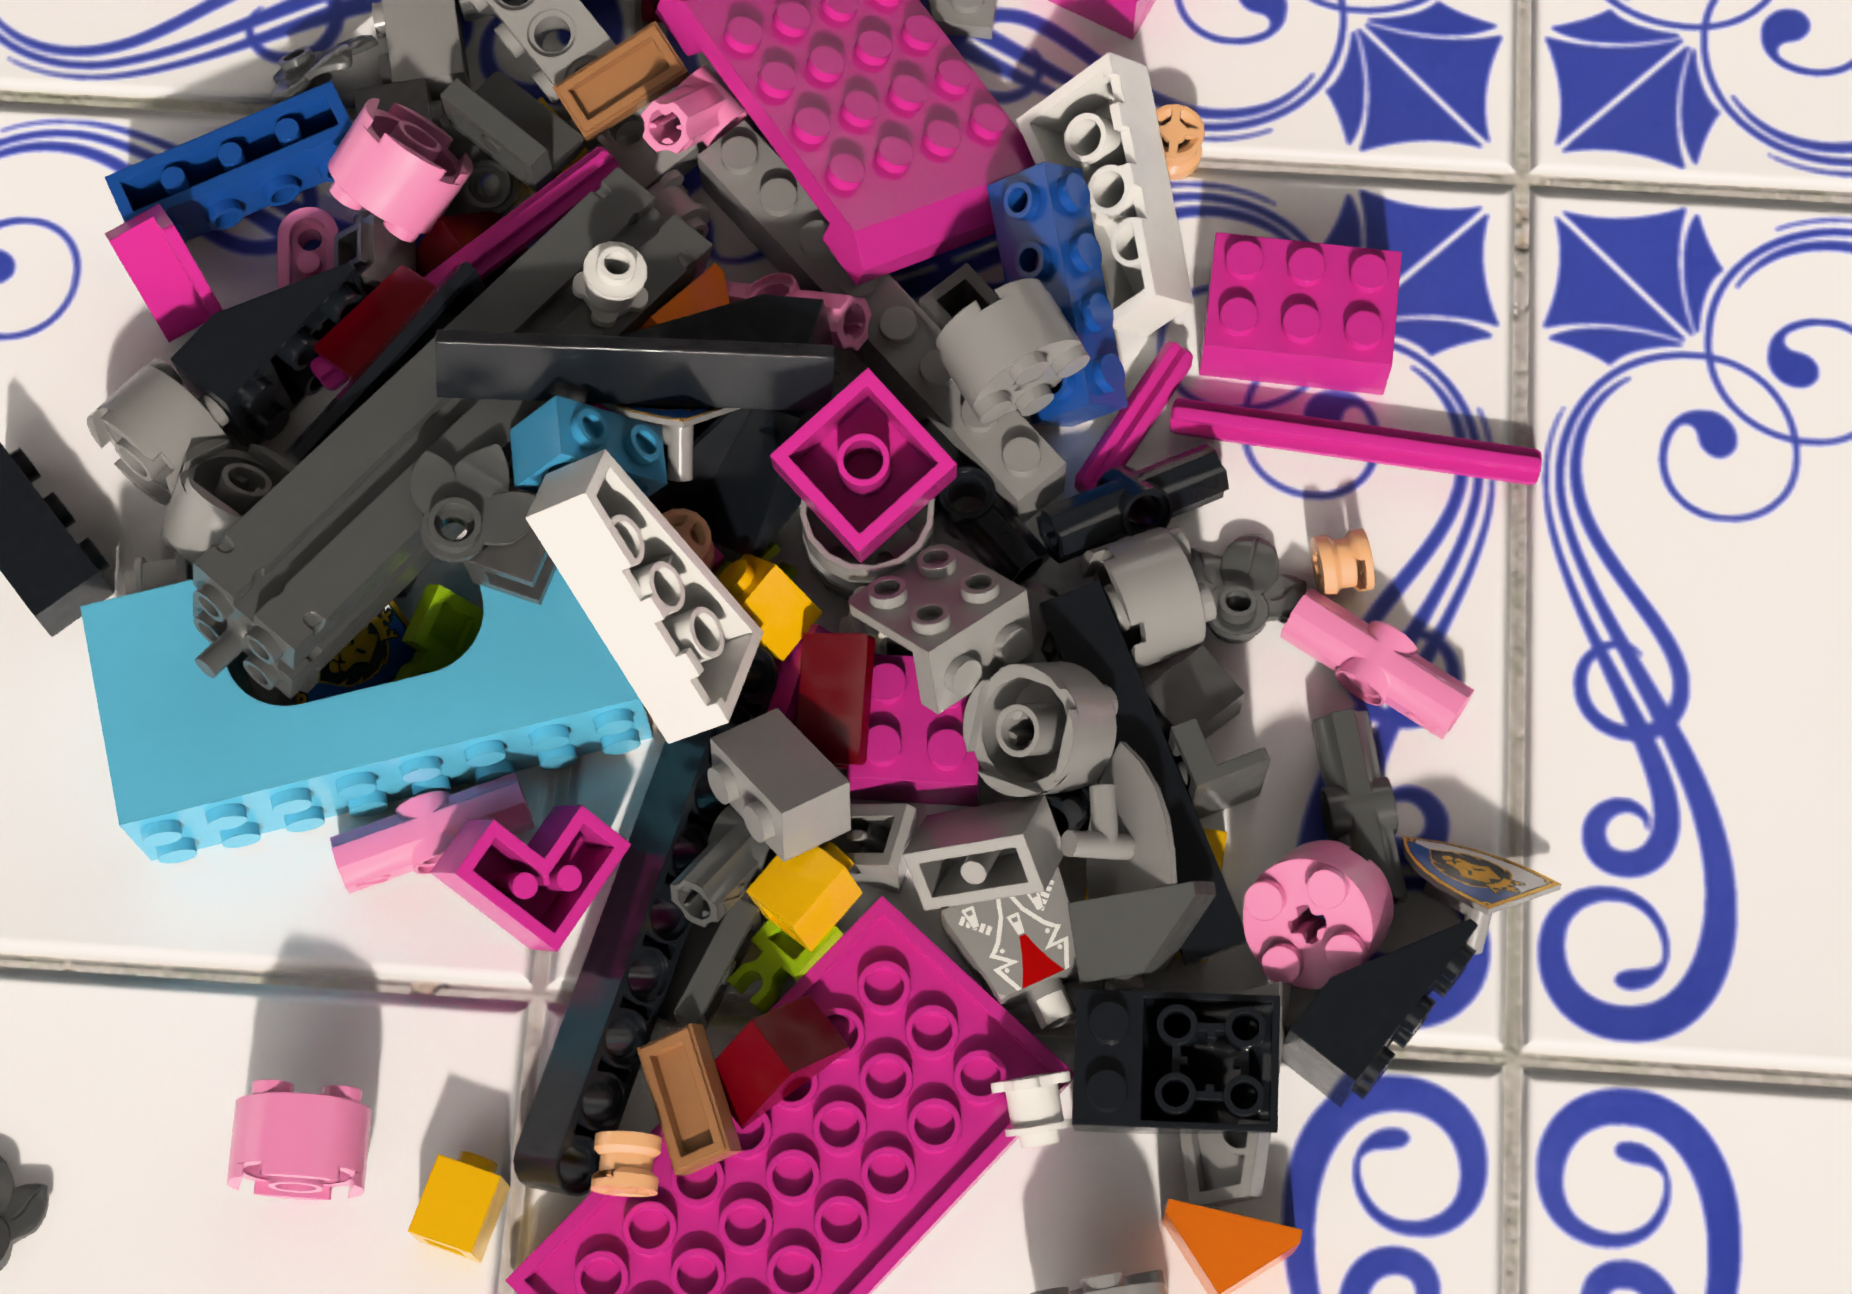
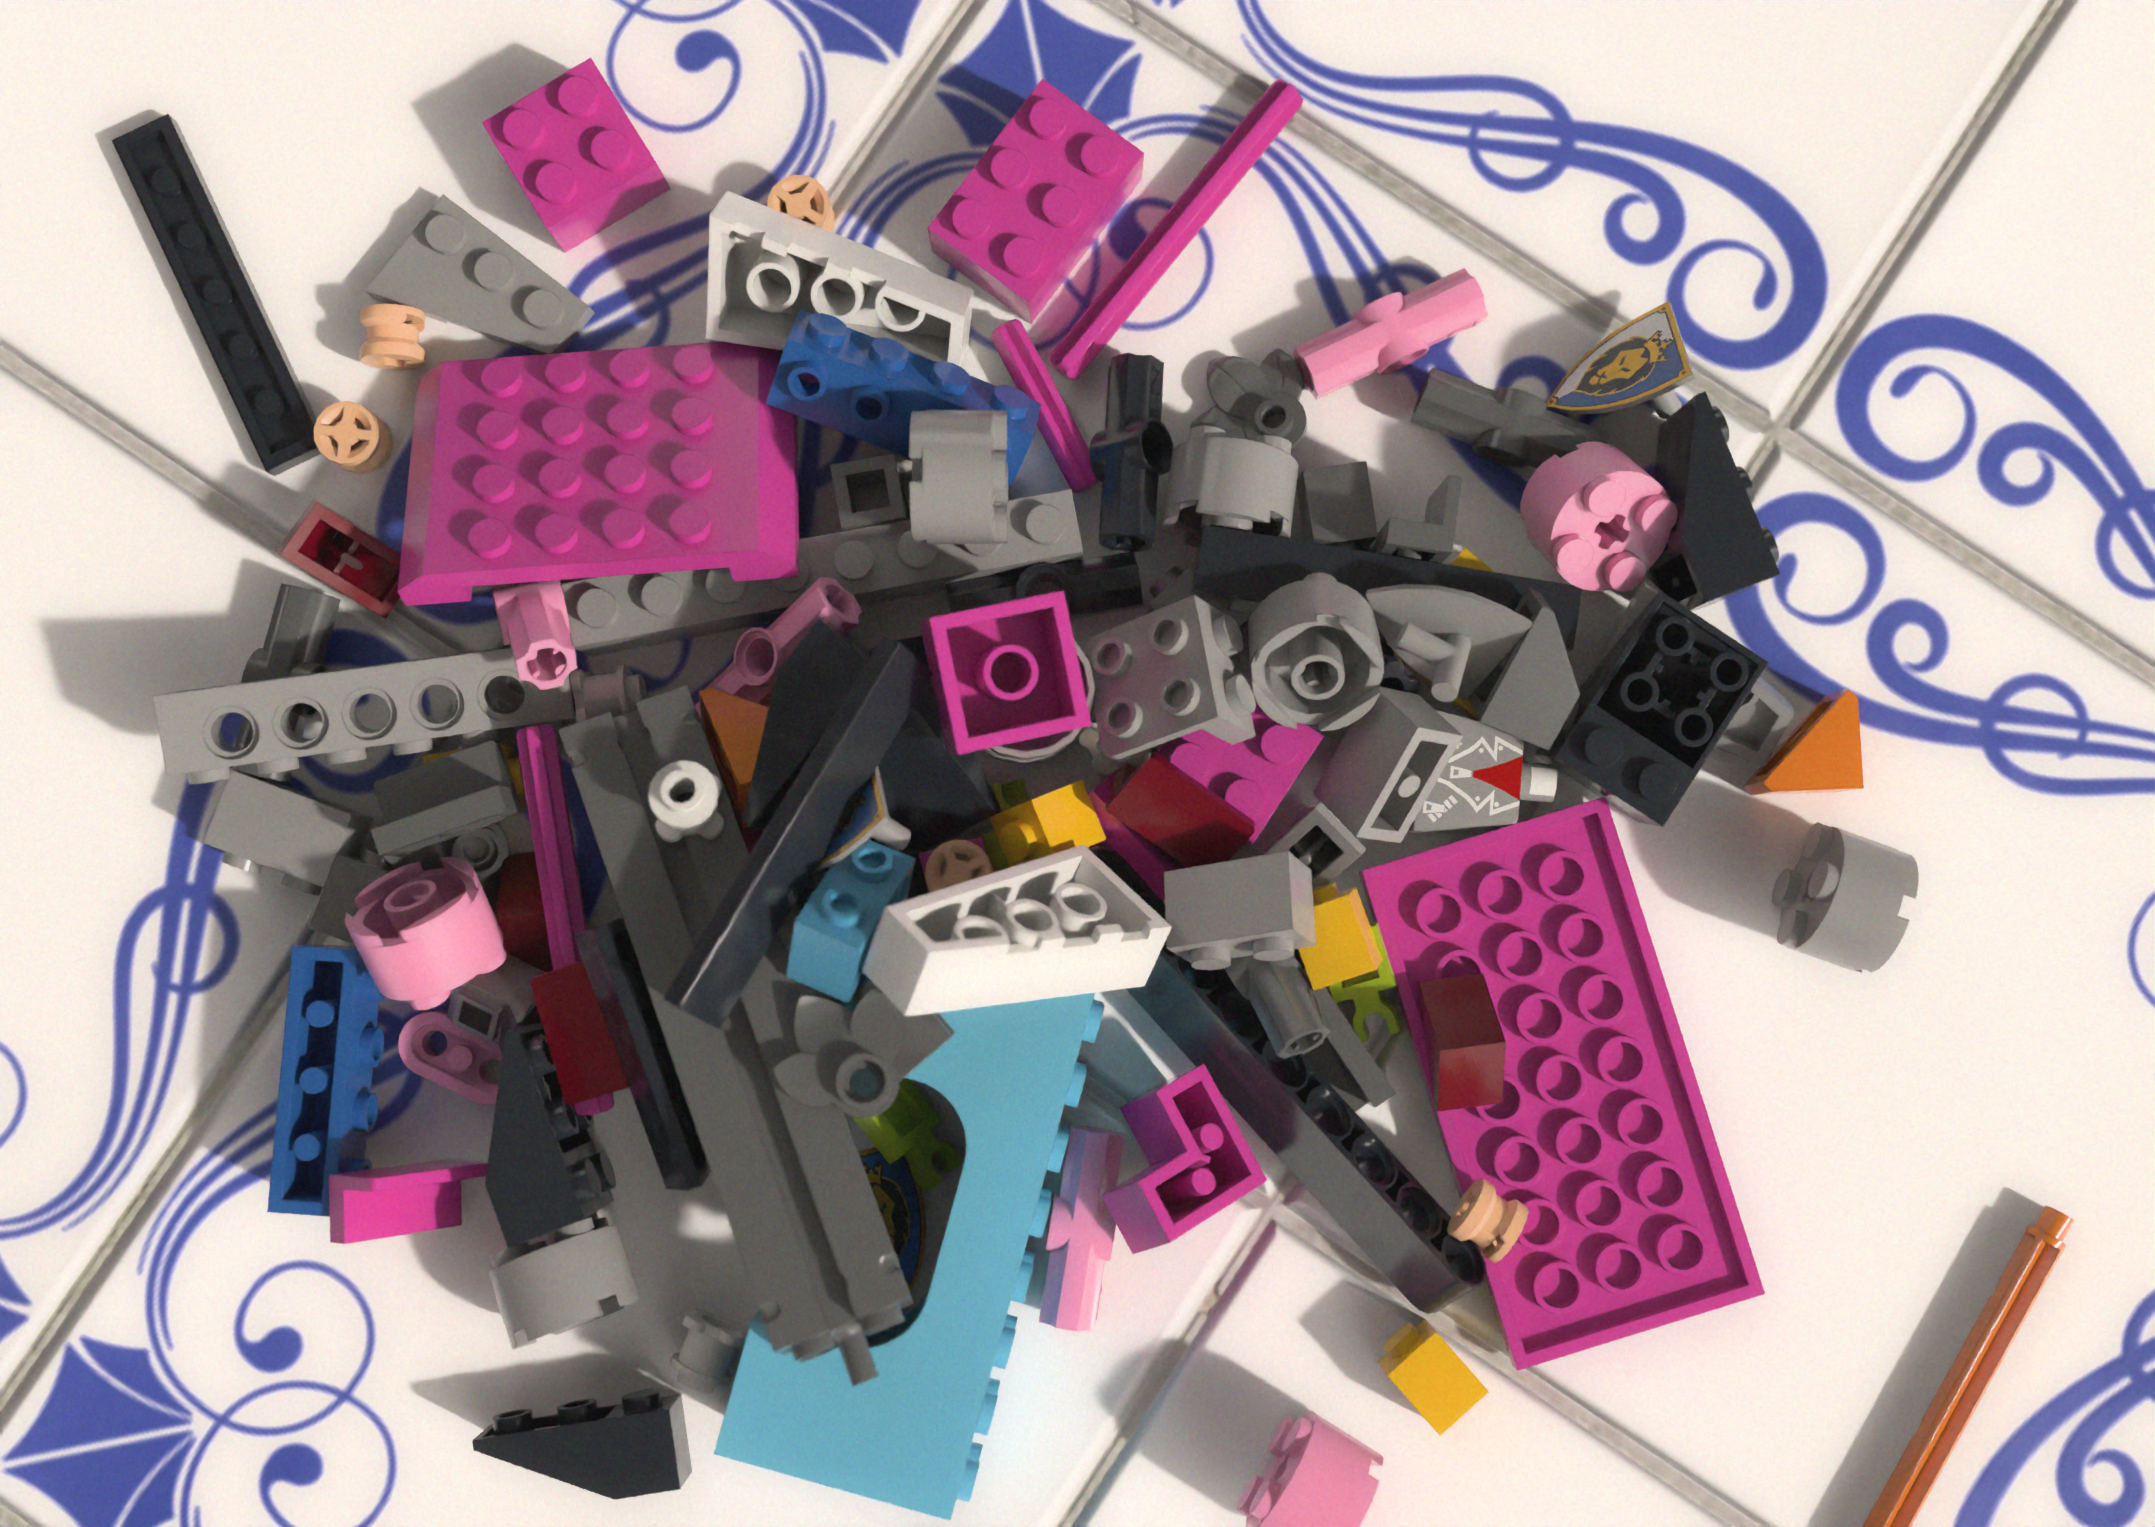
camera: 65 degrees left, 15 degrees up
(220, 490) = (678, 1258): light grey brick -> none
(308, 69) = (257, 954): dark grey plate -> none
(621, 81) = (460, 676): medium nougat tile -> none
(689, 1099) = (1458, 1135): medium nougat tile -> none
(1035, 1107) = (1627, 848): white brick -> none
(1342, 563) = (1285, 307): light nougat wheel -> none

